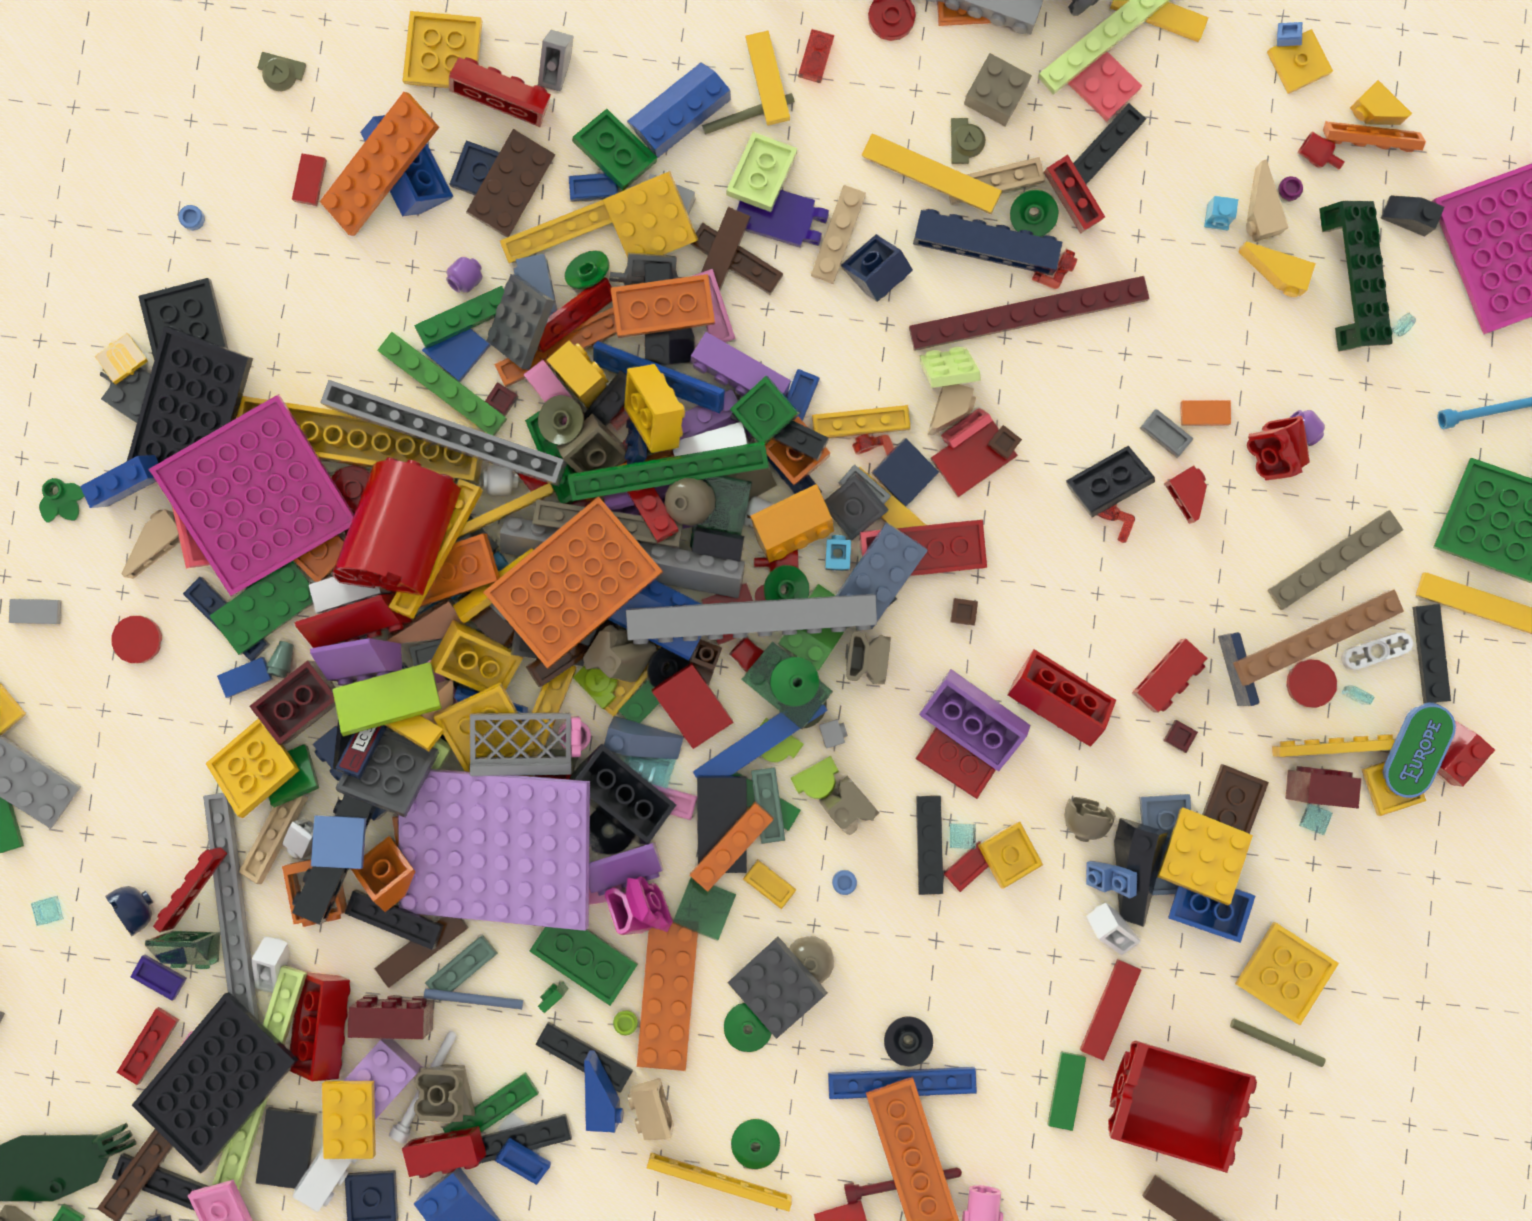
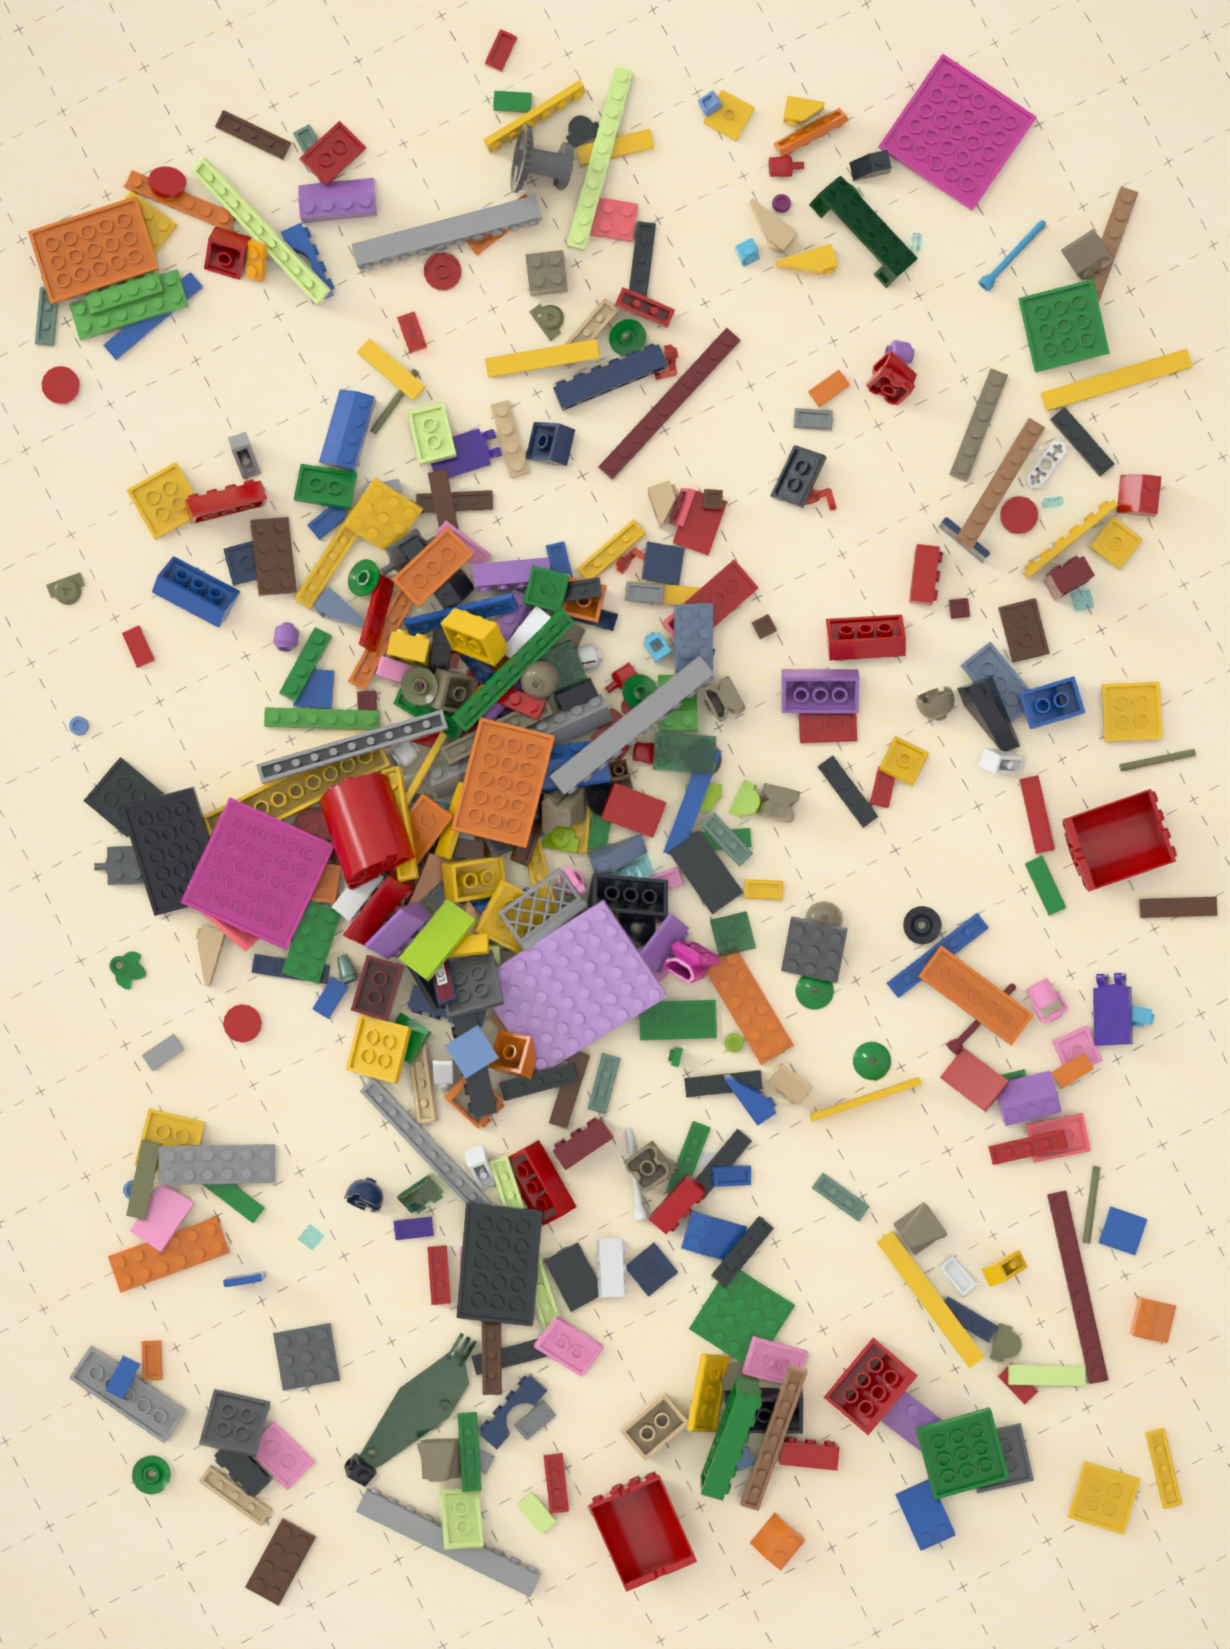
camera: 35 degrees left, 0 degrees up
(120, 482) = (162, 926): blue brick -> none
(121, 358) = (101, 849): piece -> none
(186, 894) = (394, 1145): red plate -> none
(348, 1120) = (602, 1223): yellow plate -> none
(379, 163) = (182, 604): orange plate -> none
(389, 1069) = (602, 1191): lavender brick -> none
(473, 999) = (626, 1096): sand blue bar -> none
(520, 321) = (347, 641): dark grey plate -> none
(731, 846) = (721, 881): orange plate -> none
(782, 681) = (681, 753): green dish -> none
(792, 523) = (614, 648): light orange slope -> none
(833, 733) = (735, 764): light grey plate -> none
(844, 882) = (810, 854): medium blue tile -> none
(855, 506) = (646, 609): dark grey tile -> none
(949, 367) = (643, 476): yellowish green plate -> none
(962, 836) = (864, 770): clear light blue tile -> none
(1111, 877) = (977, 729): medium blue slope -> none
(1188, 492) = (853, 447): red slope -> none
(1205, 856) = (1025, 673): yellow plate -> none
(1419, 750) = (1113, 510): green tile -> none

